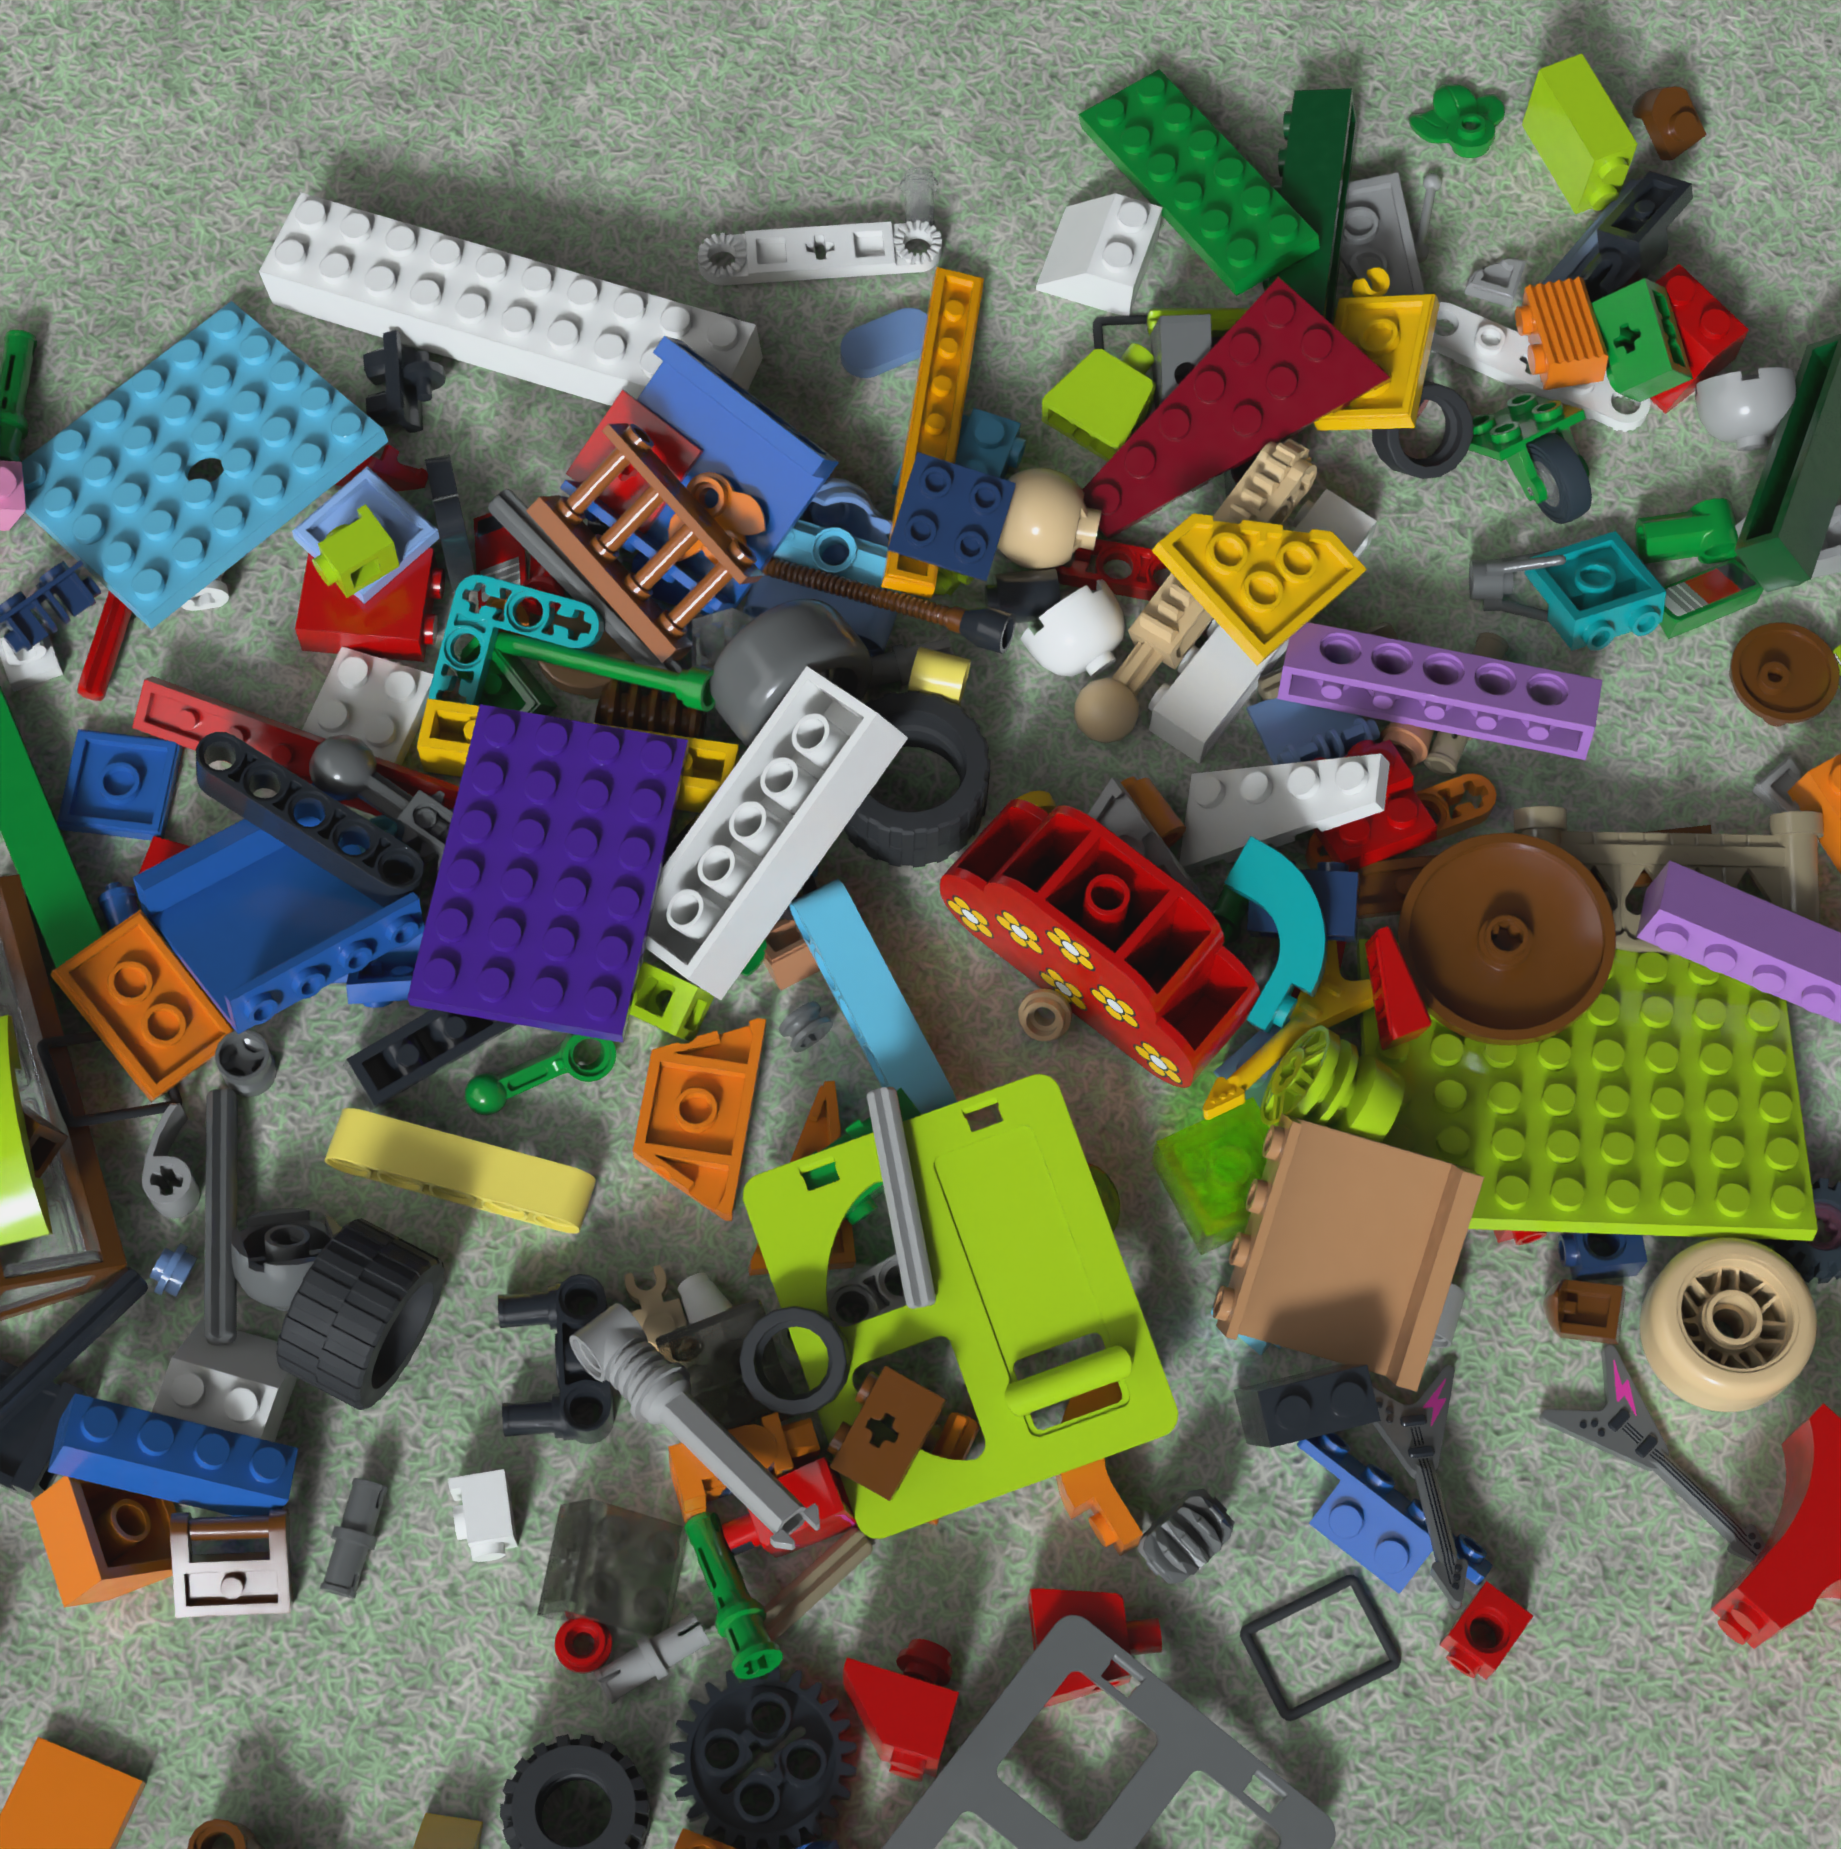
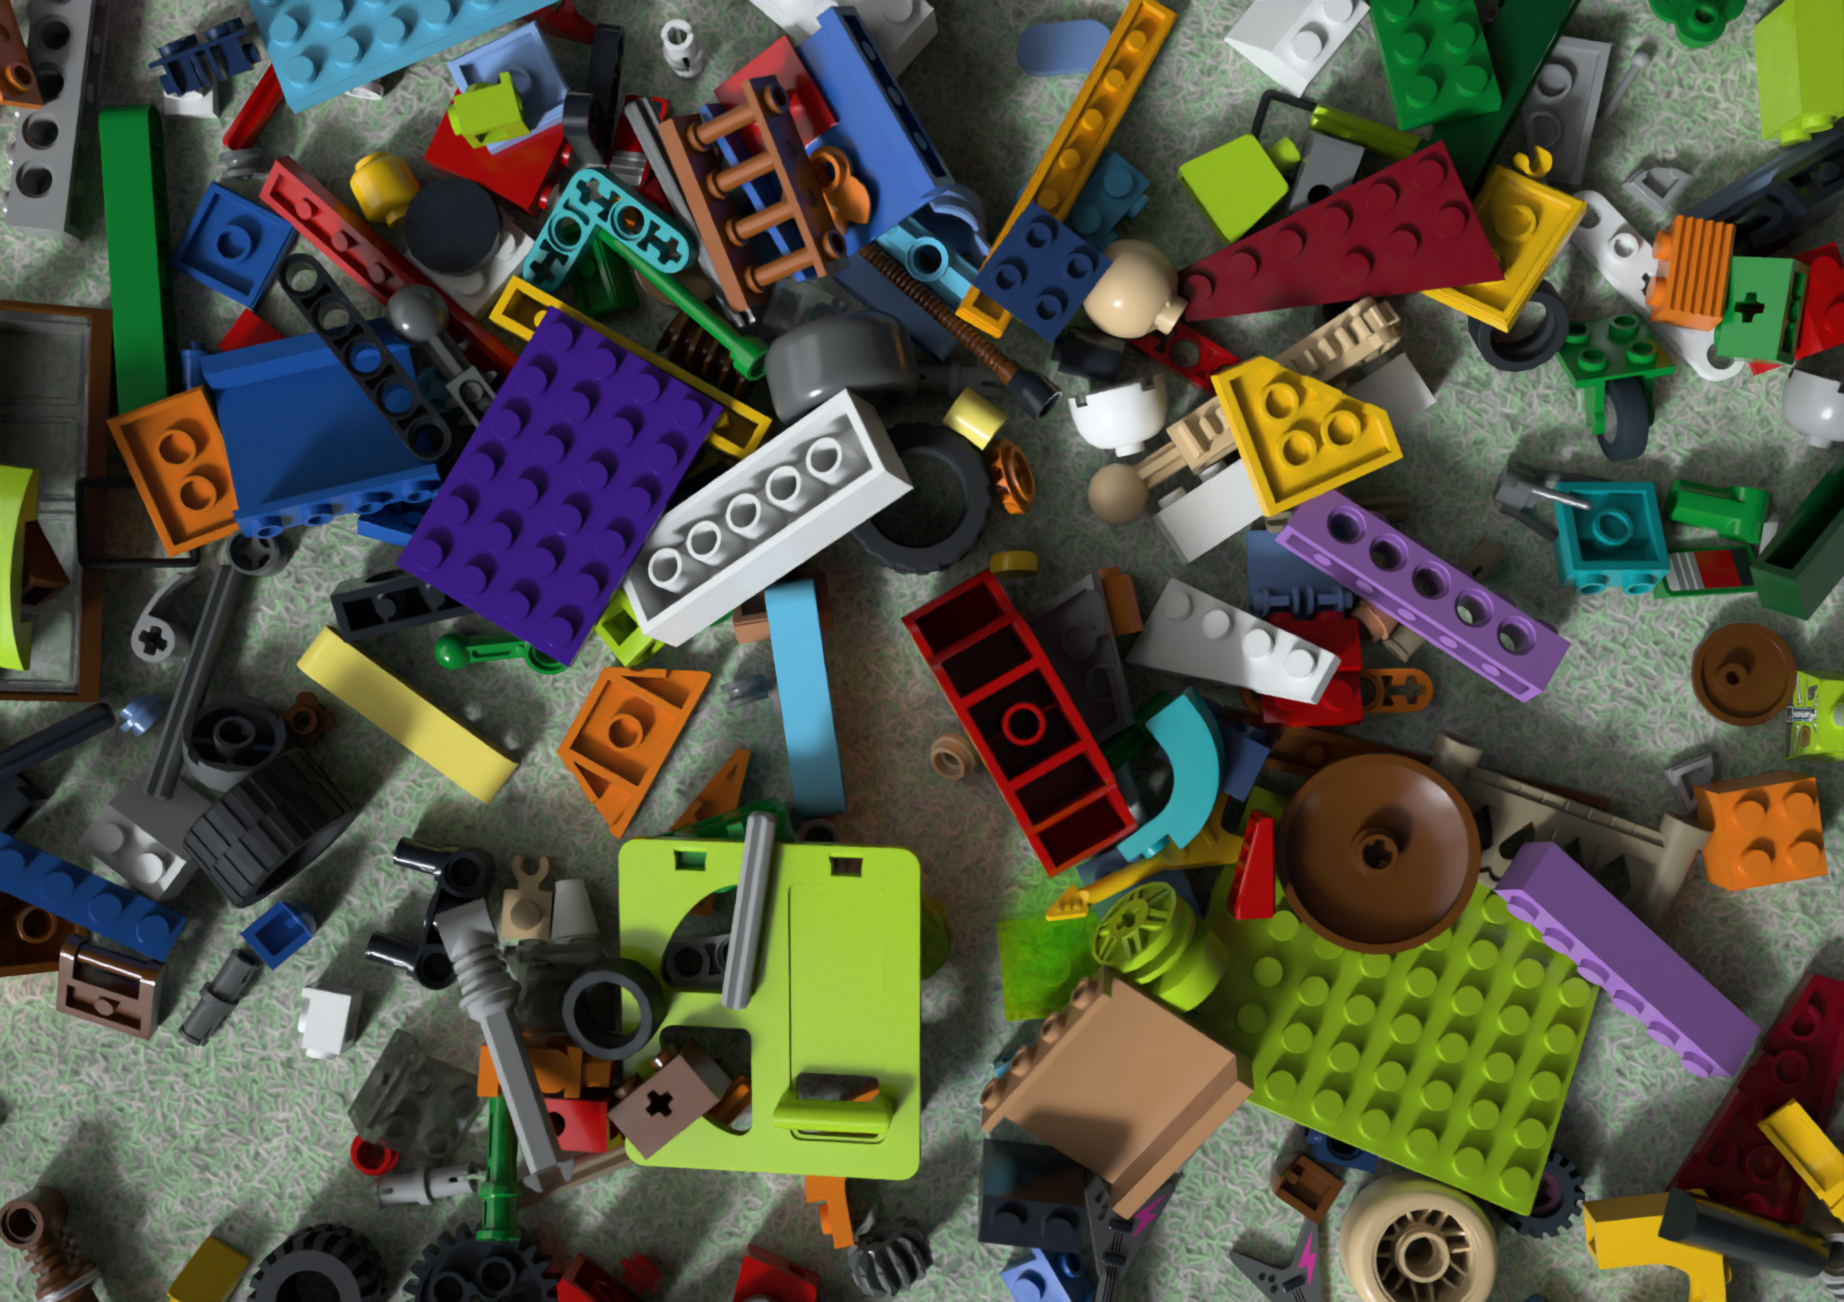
camera: 25 degrees right, 20 degrees up
(108, 701) = (243, 164): none -> dark grey bush
(263, 677) = (384, 188): none -> yellow head
(347, 683) = (453, 227): none -> black tile
(349, 1202) = (320, 720): none -> reddish brown plate
(400, 1440) = (281, 931): none -> blue plate
(520, 451) = (689, 48): none -> white pin
(996, 728) = (1011, 476): none -> orange gear

